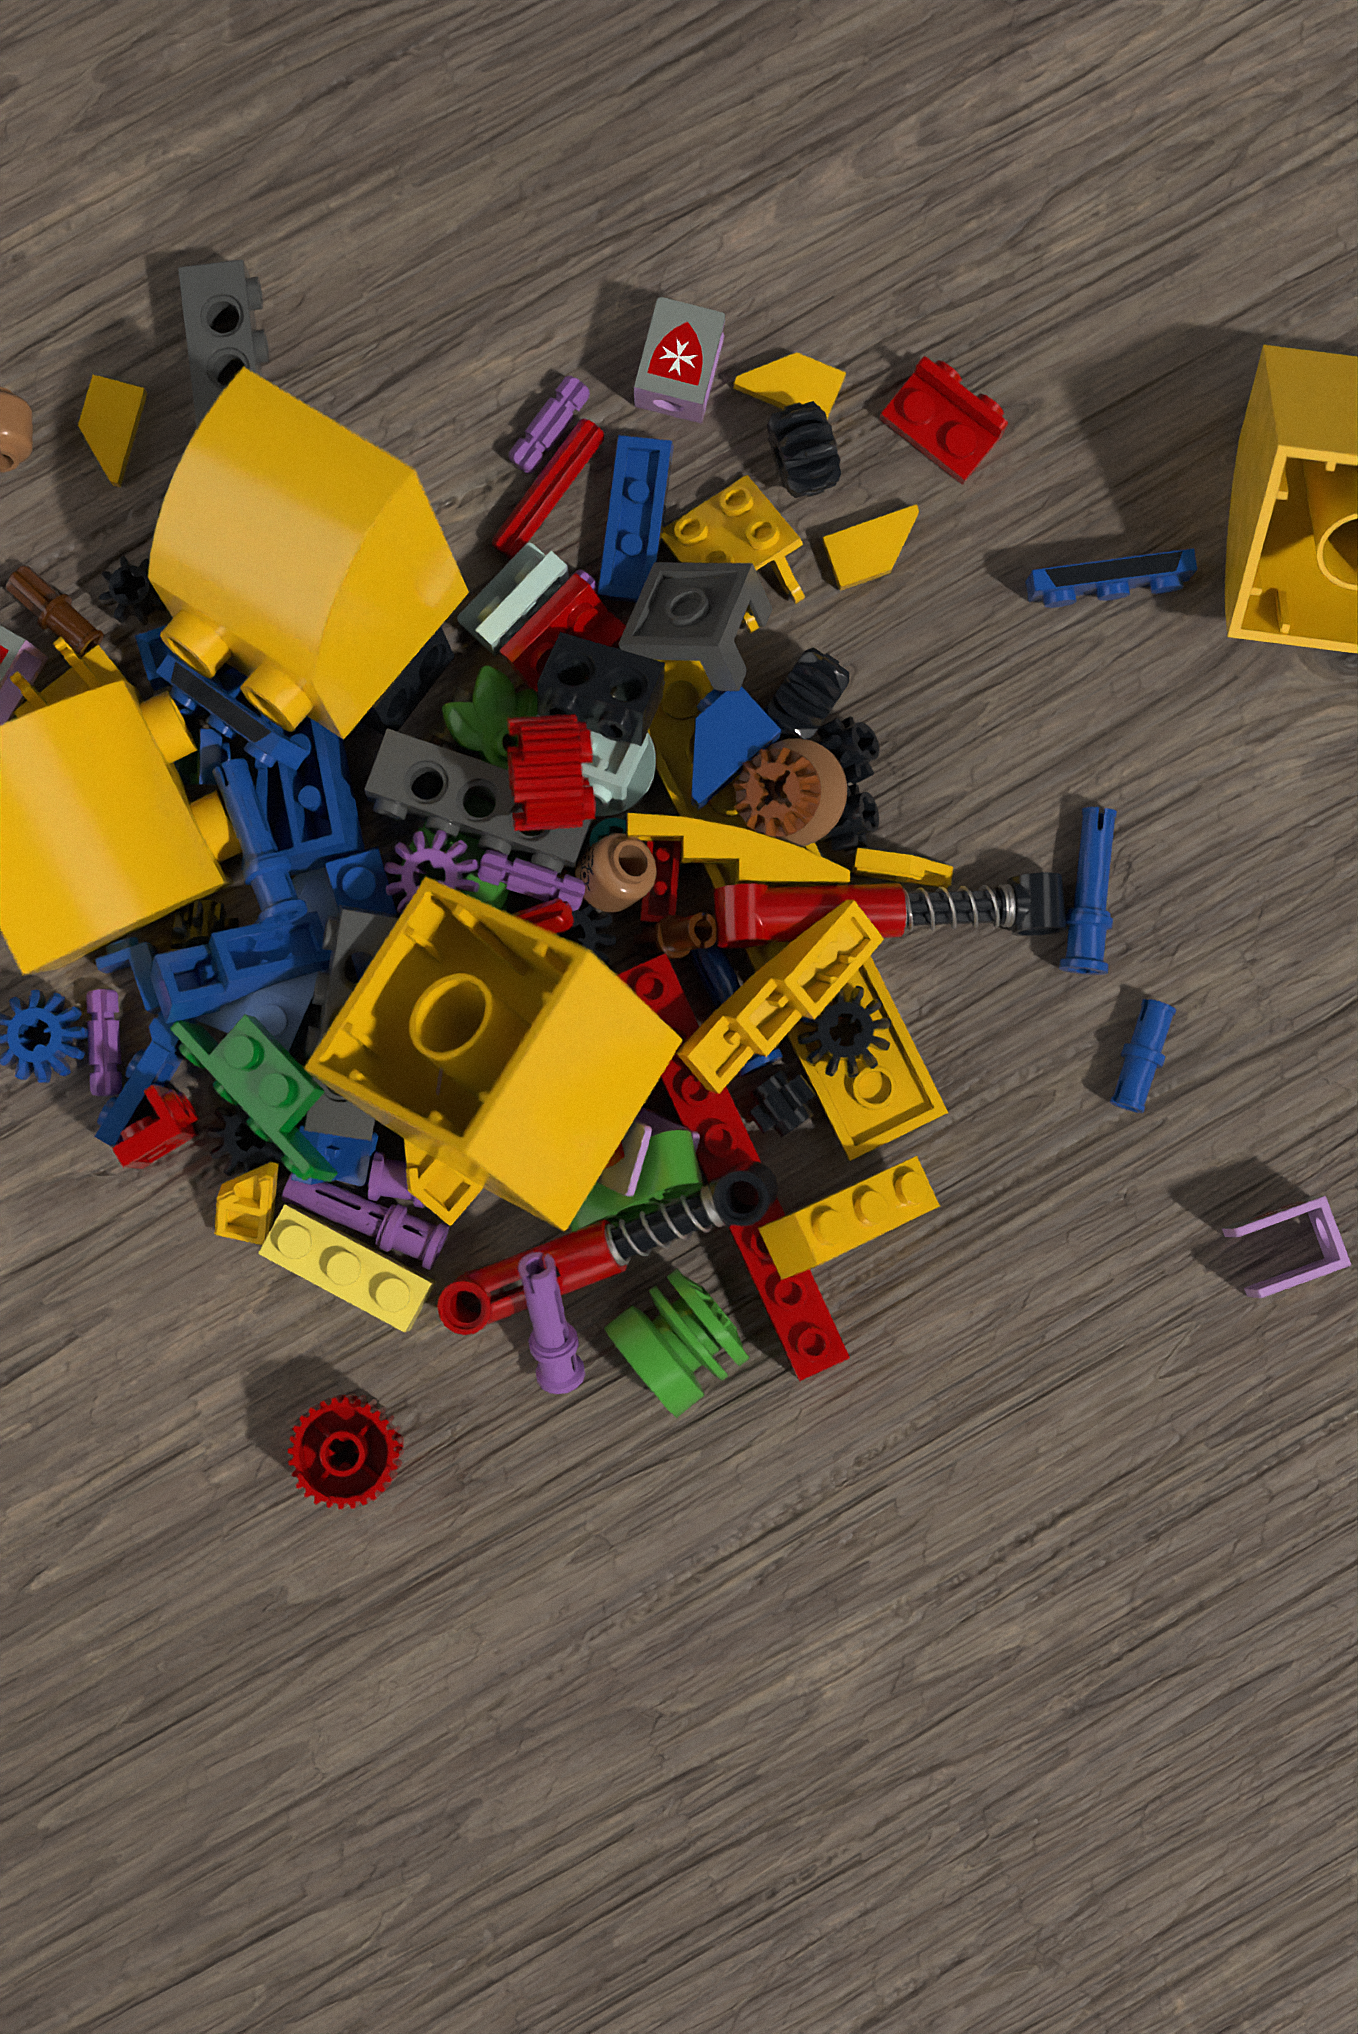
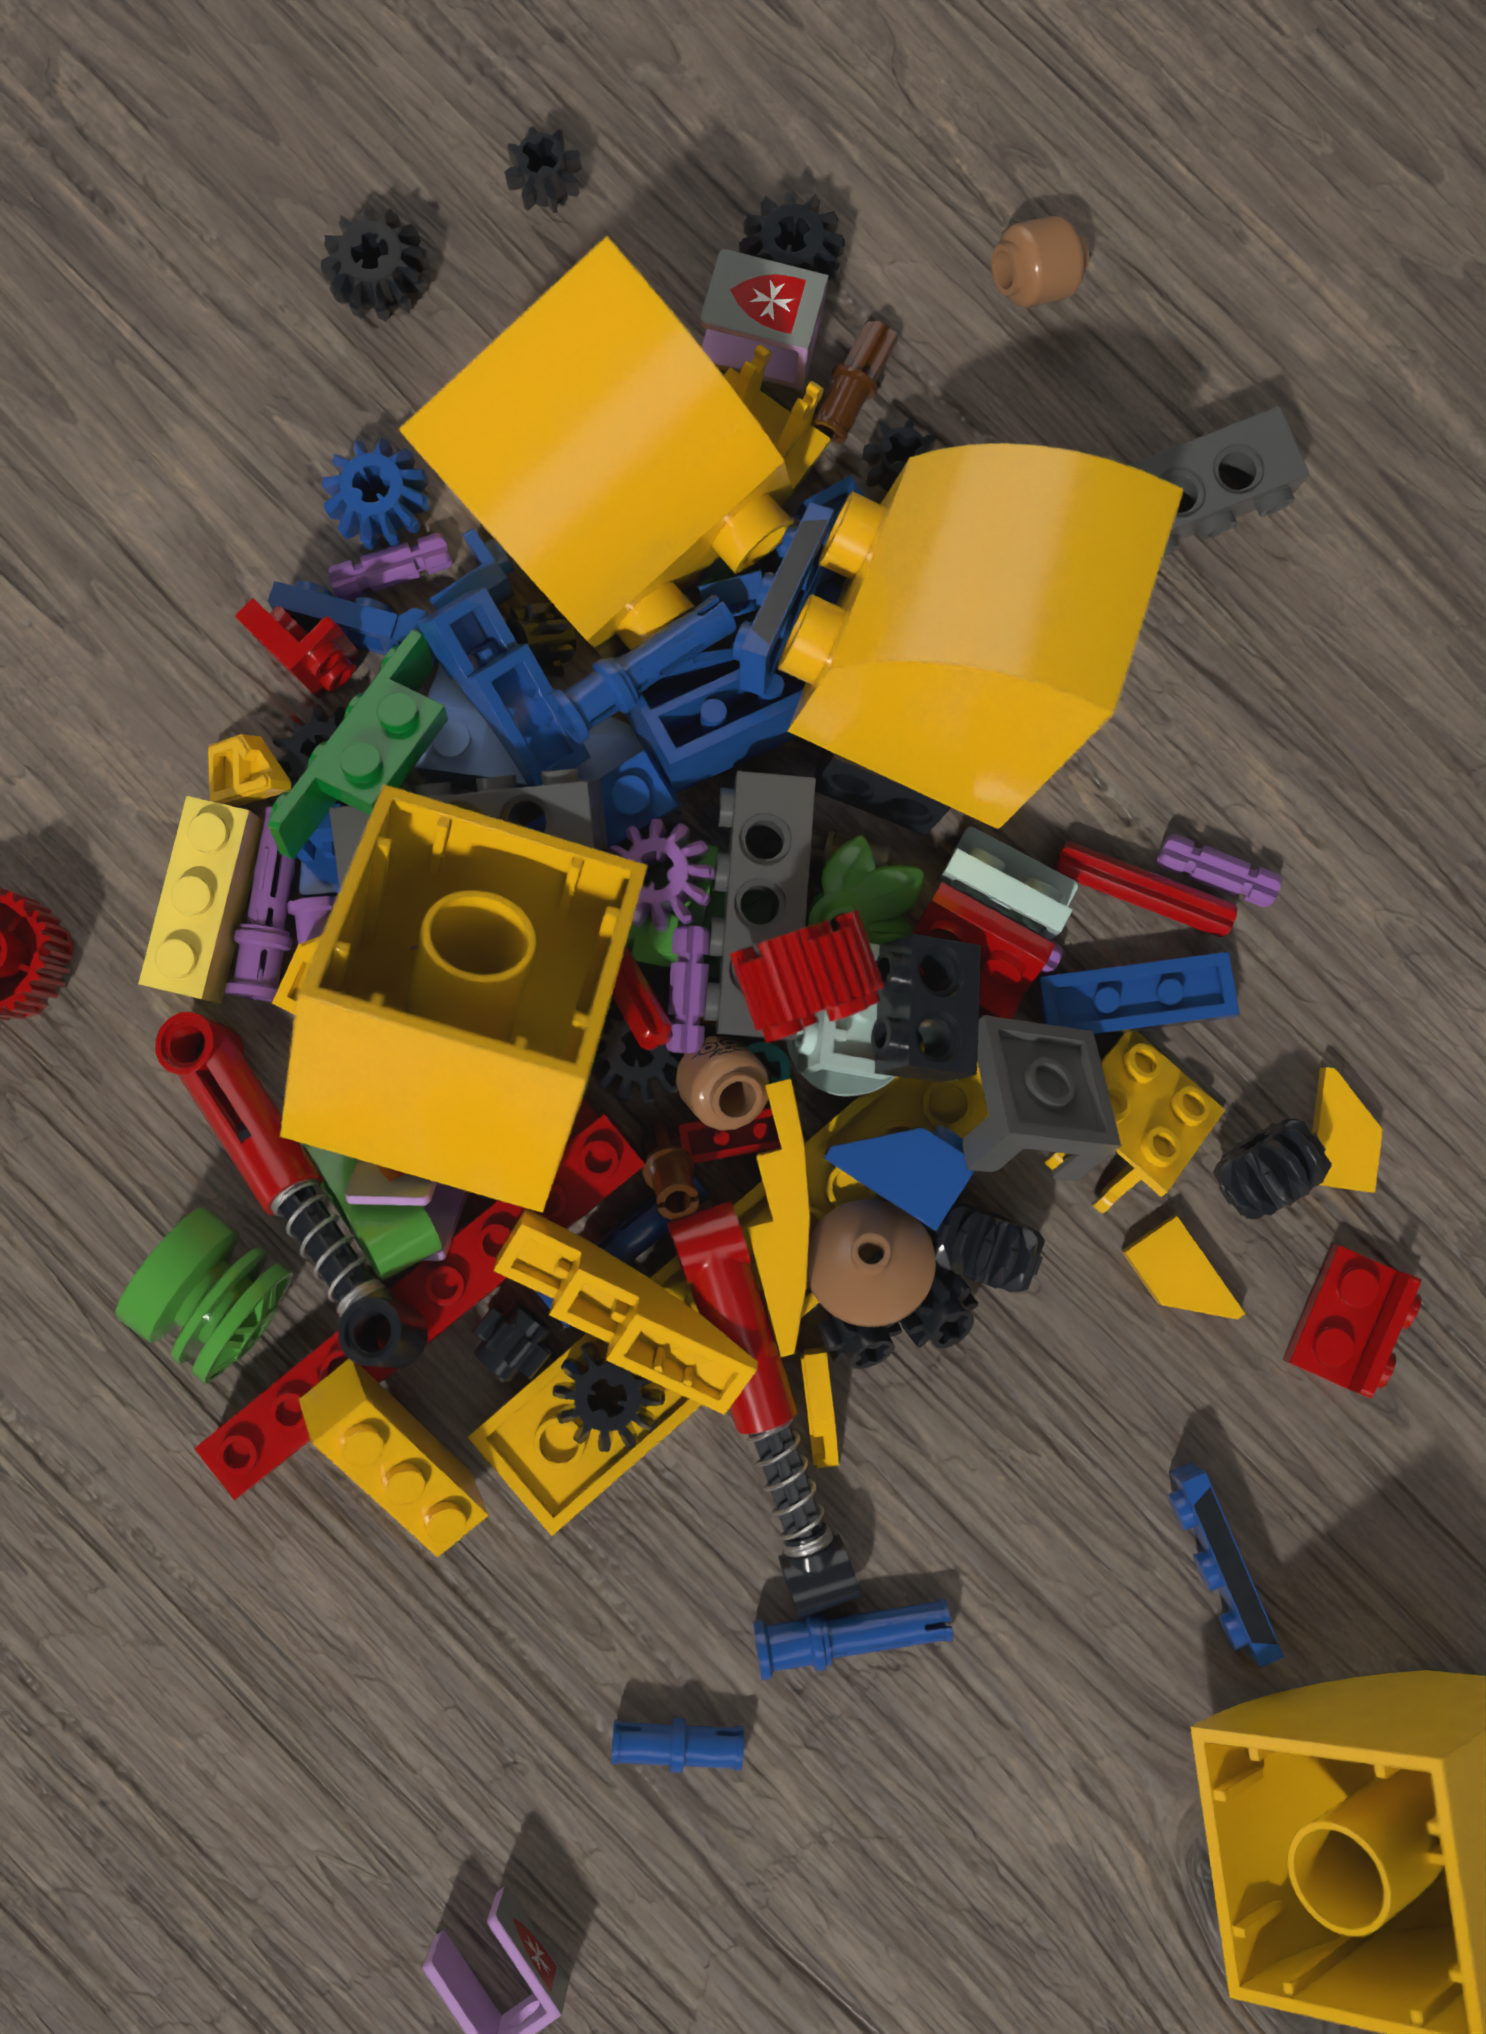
camera: 80 degrees right, 0 degrees up
(111, 423) = (1082, 386): yellow tile -> none
(552, 1338) = (176, 1152): medium lavender pin -> none
(679, 359) = (1336, 997): piece -> none
(801, 788) = (871, 1273): dark orange gear -> none

